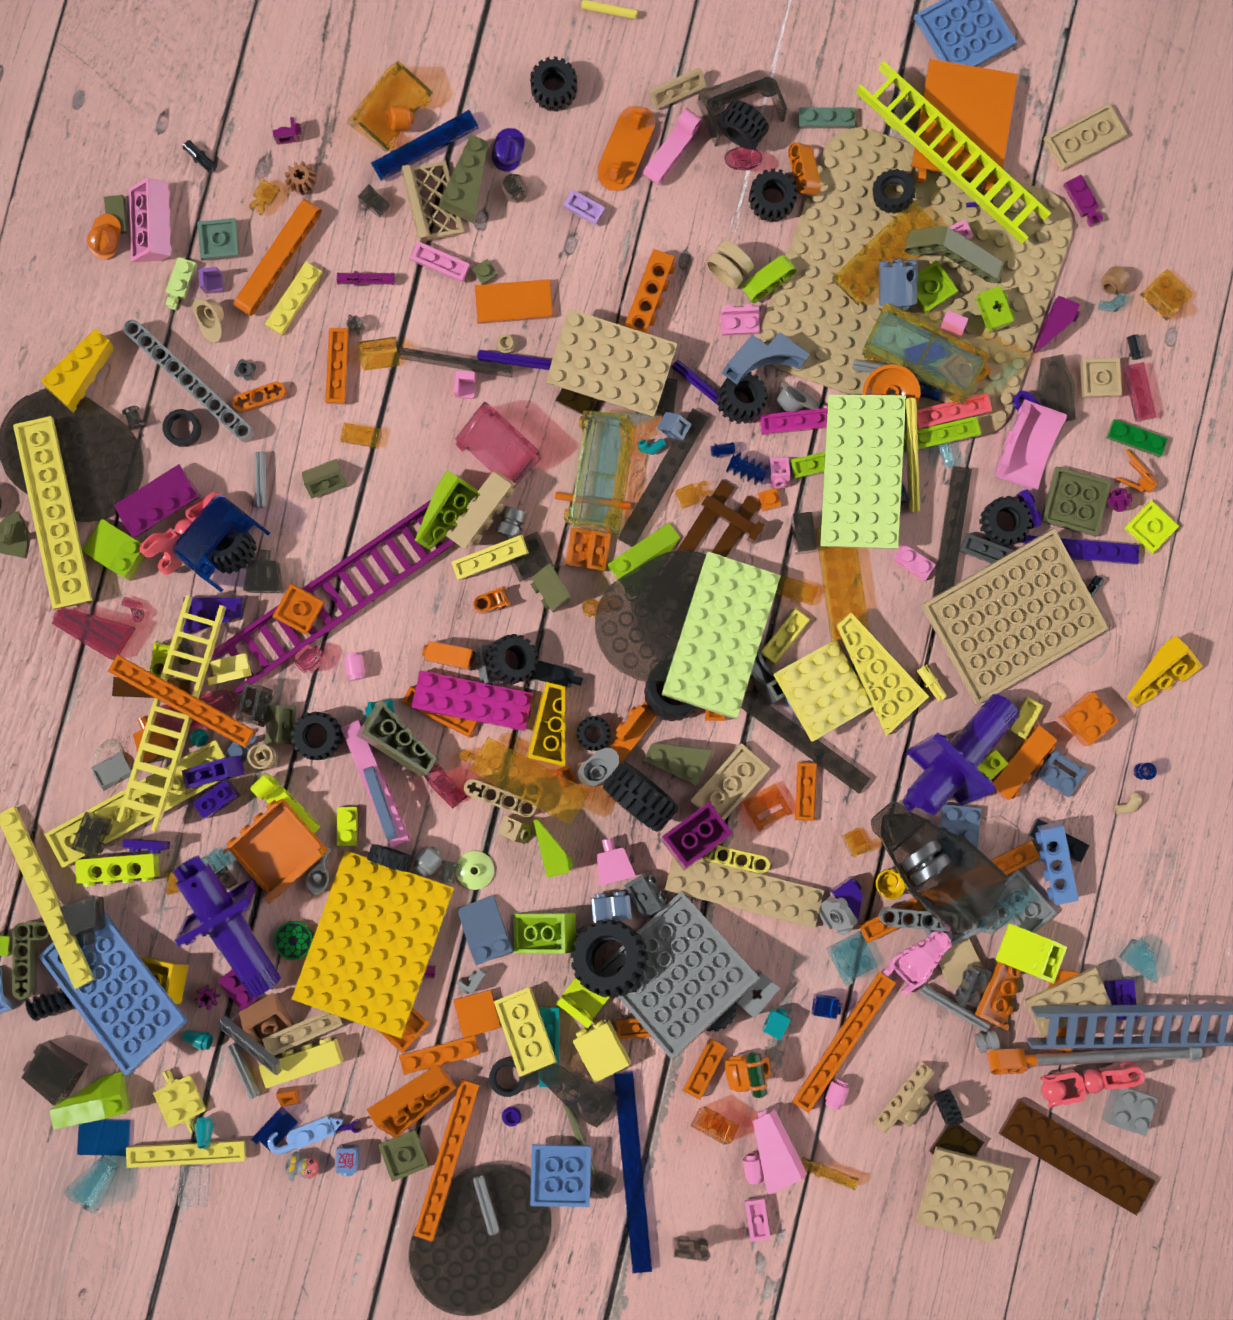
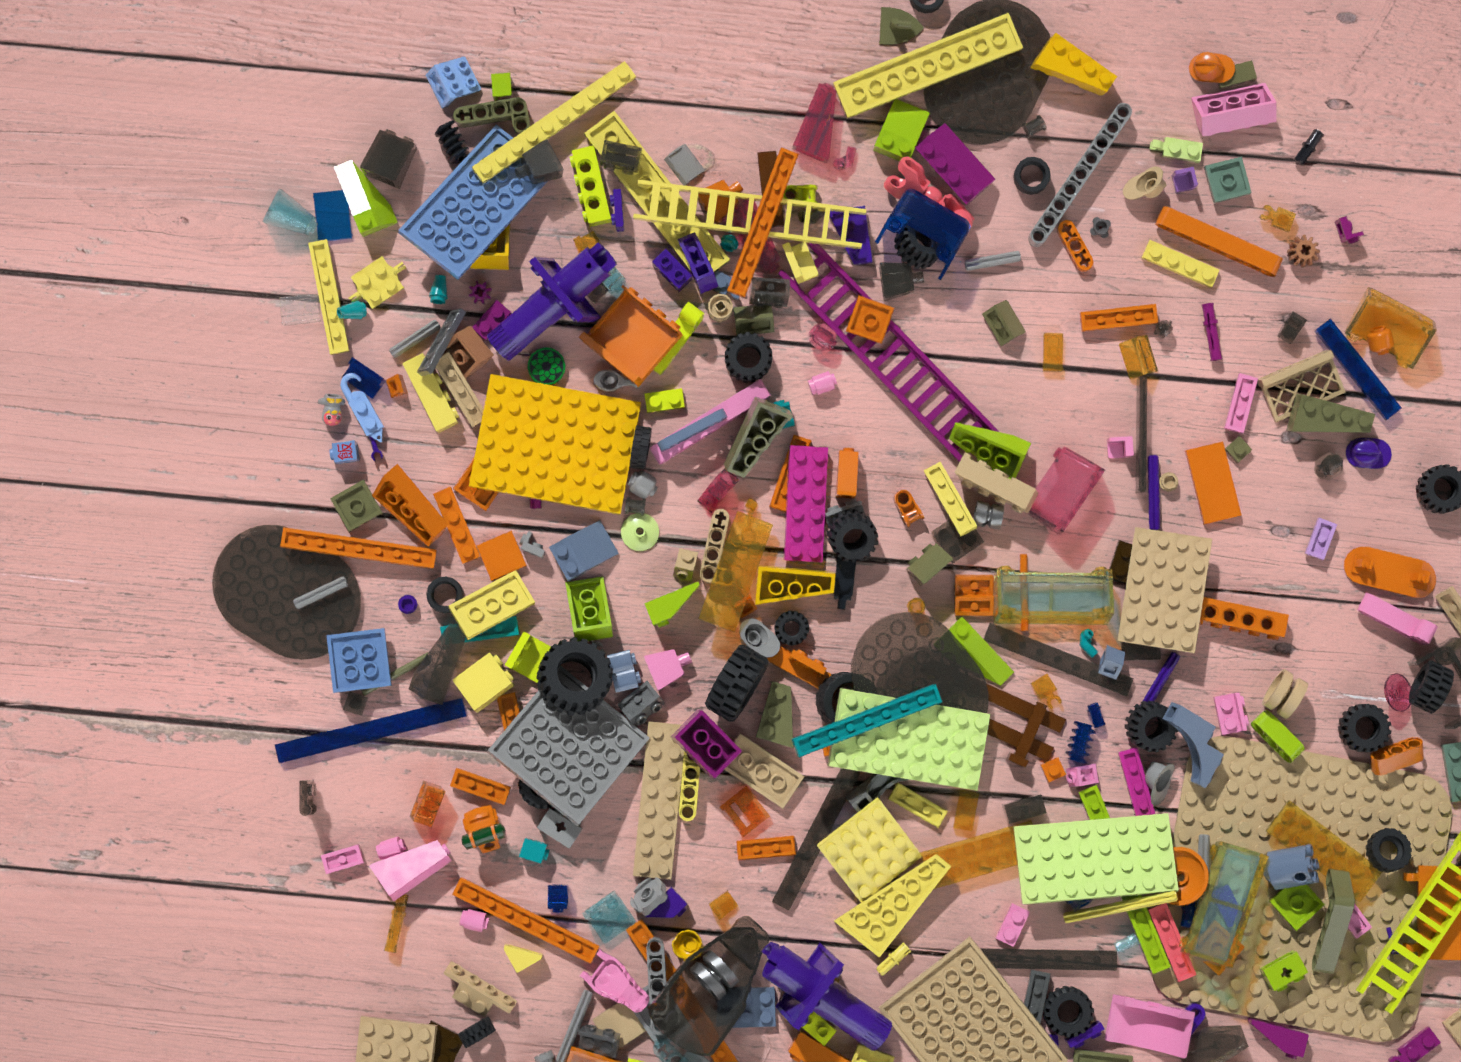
camera: 80 degrees right, 0 degrees up
(697, 673) = (866, 720): none -> teal tile
(880, 1051) = (521, 957): none -> light yellow slope
(953, 324) = (1259, 929): bright pink panel -> none

